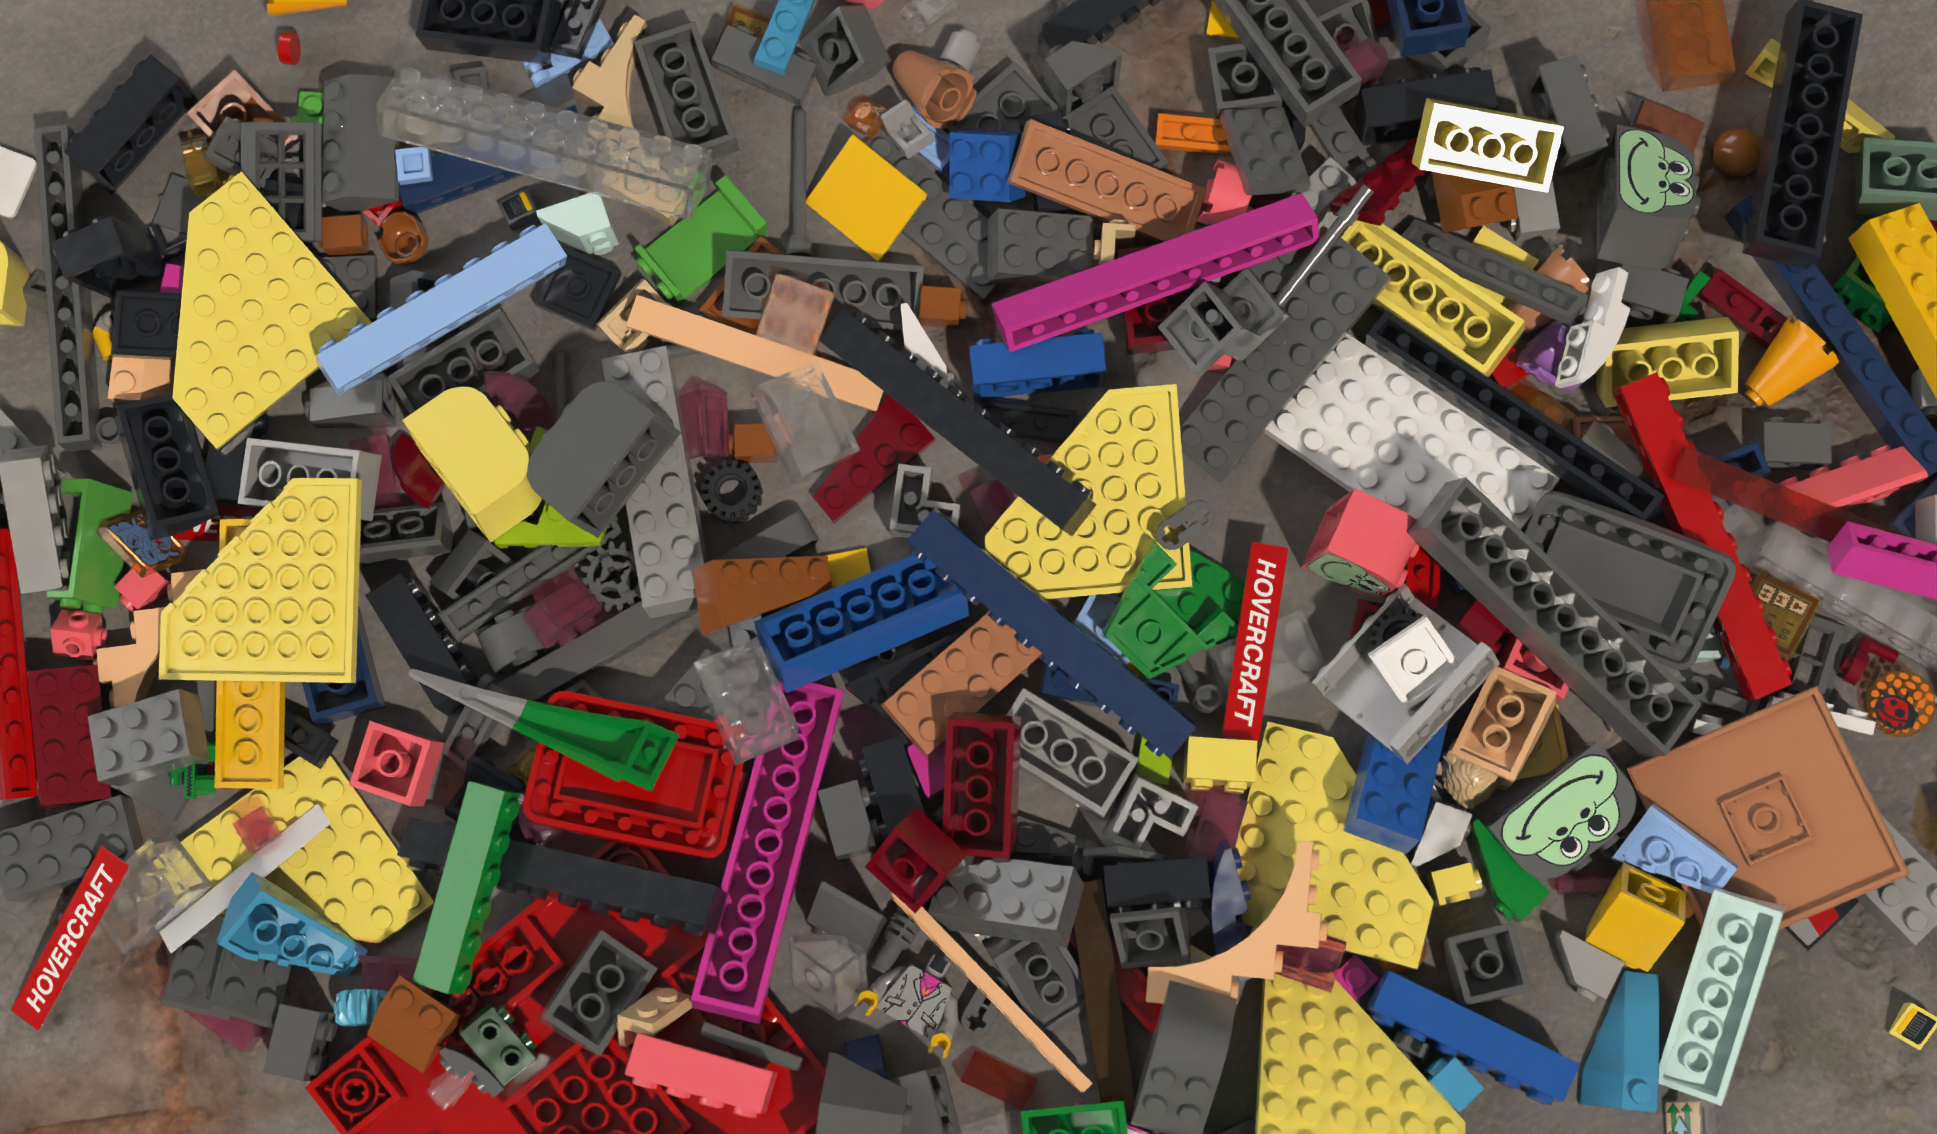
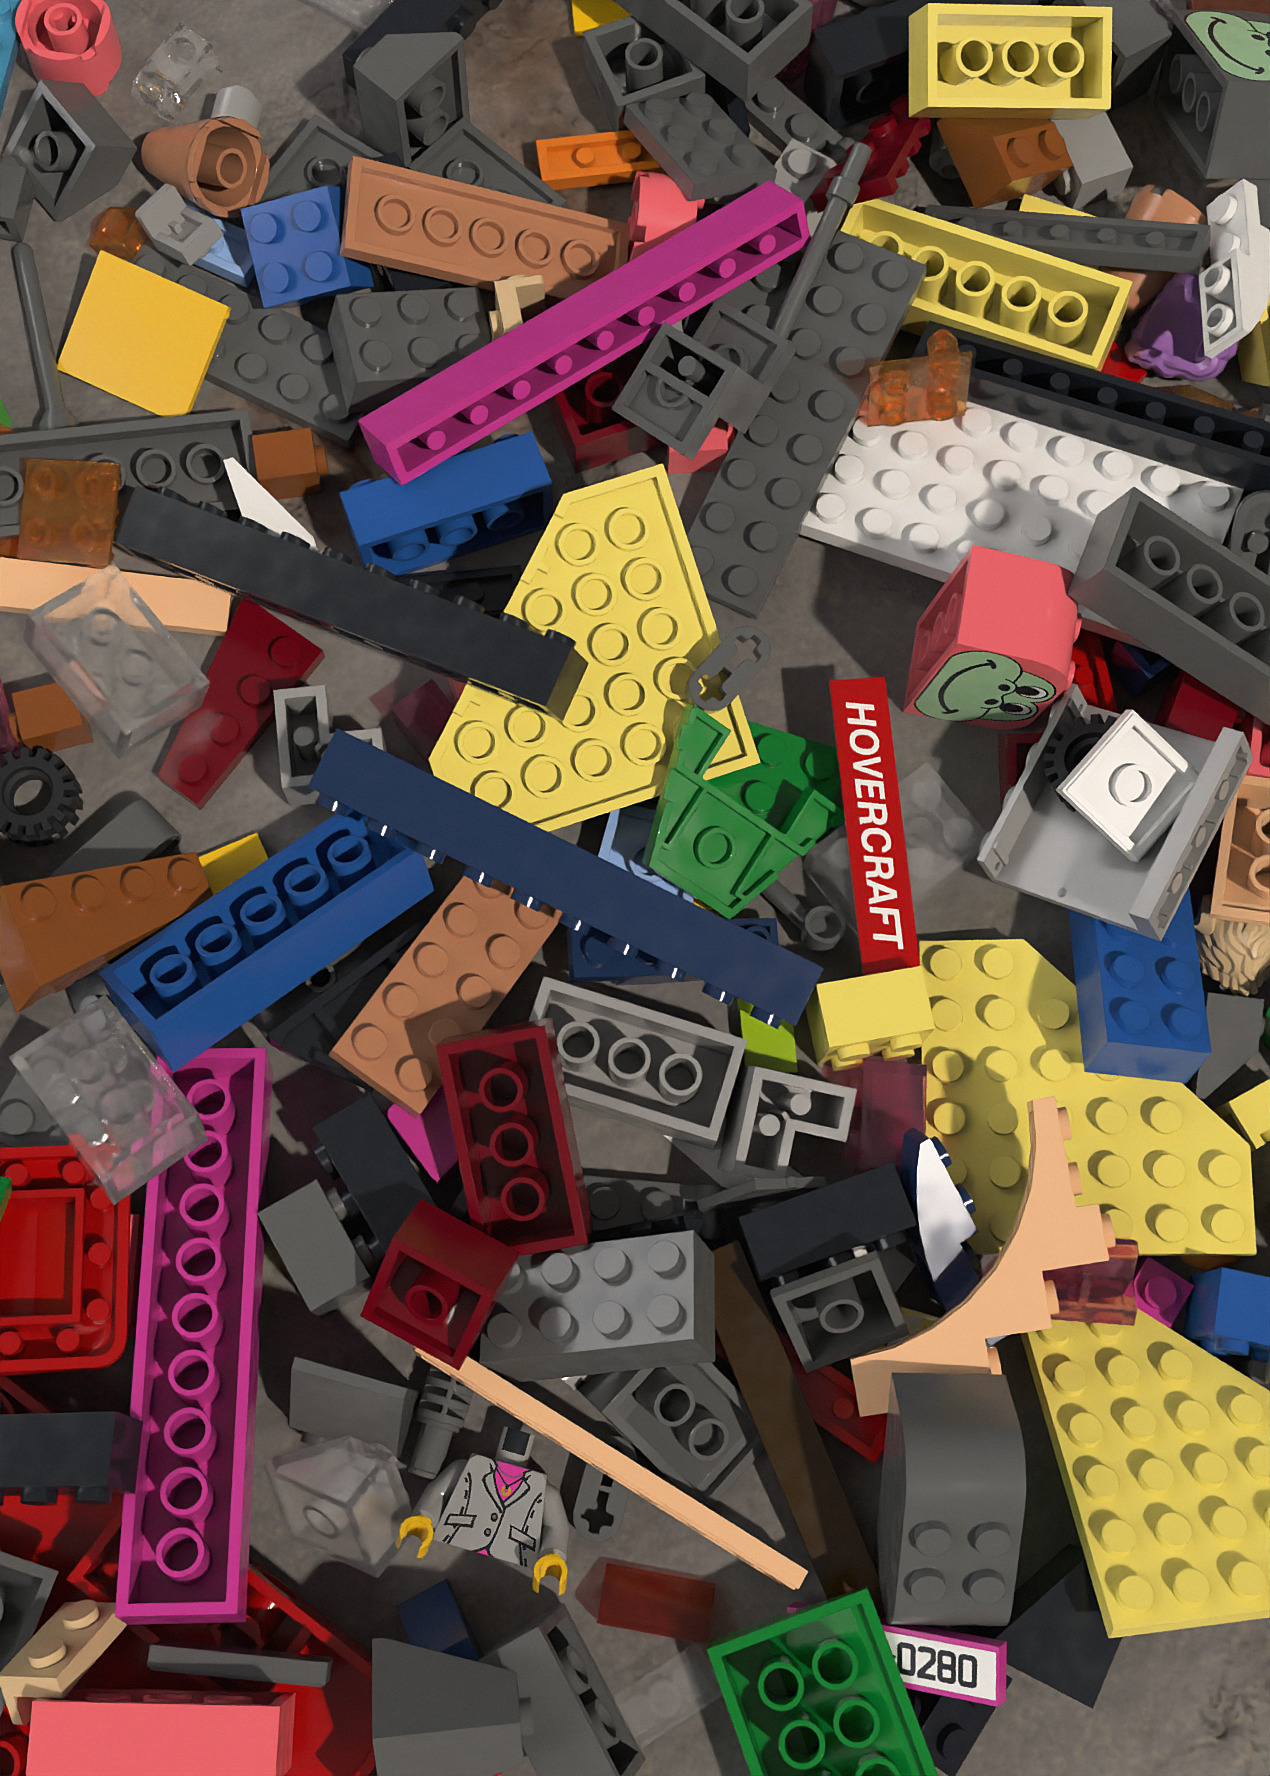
camera: 25 degrees left, 5 degrees down
(1374, 362) = (920, 386): none -> clear orange hinge

